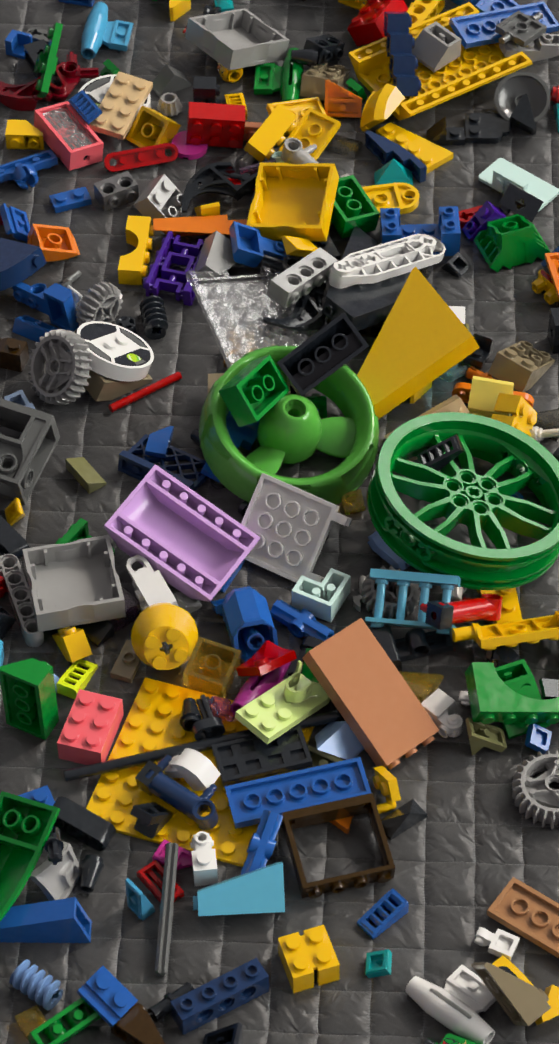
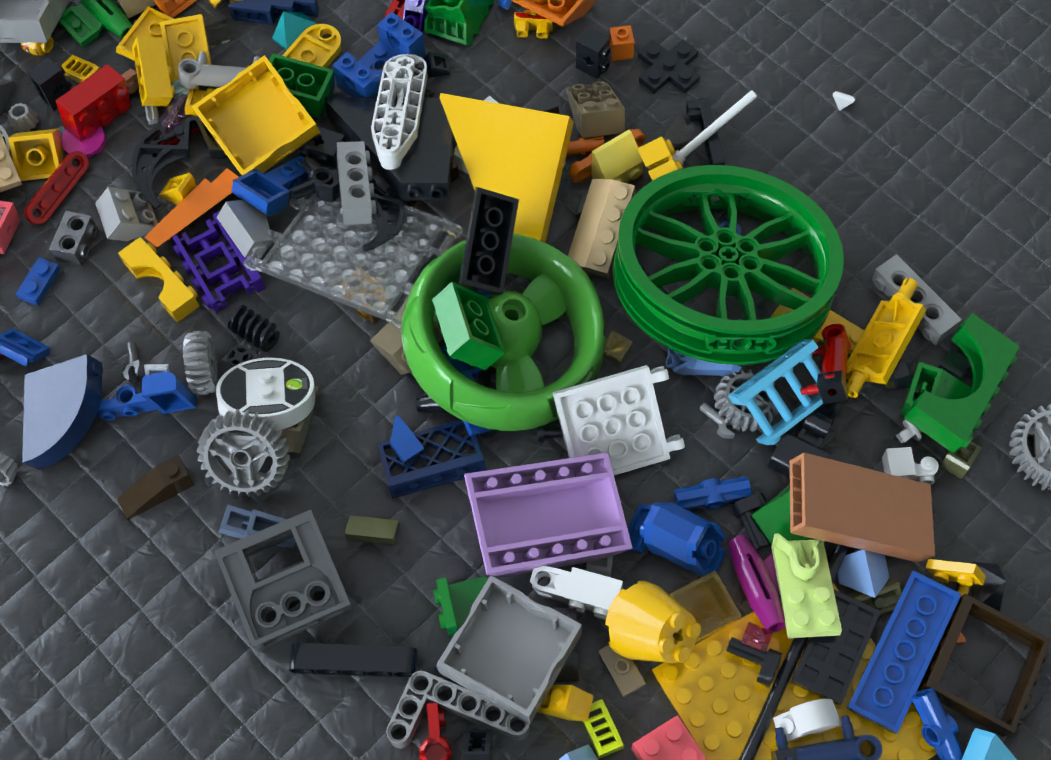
camera: 45 degrees left, 15 degrees up
(14, 511) = (357, 627): yellow slope -> none
(31, 327) = (157, 433): blue slope -> none
(55, 242) = (76, 336): orange slope -> none
(145, 391) = (326, 404): red bar -> none
(189, 714) = (739, 669): black cone -> none
(266, 659) = (745, 560): red plate -> none
(298, 246) = (311, 155): yellow slope -> none
(322, 598) = (705, 457): light aqua brick -> none
(422, 683) = (859, 453): clear yellow slope -> none
(435, 457) = (677, 247): black slope -> none
(538, 738) = (994, 418): plate -> none

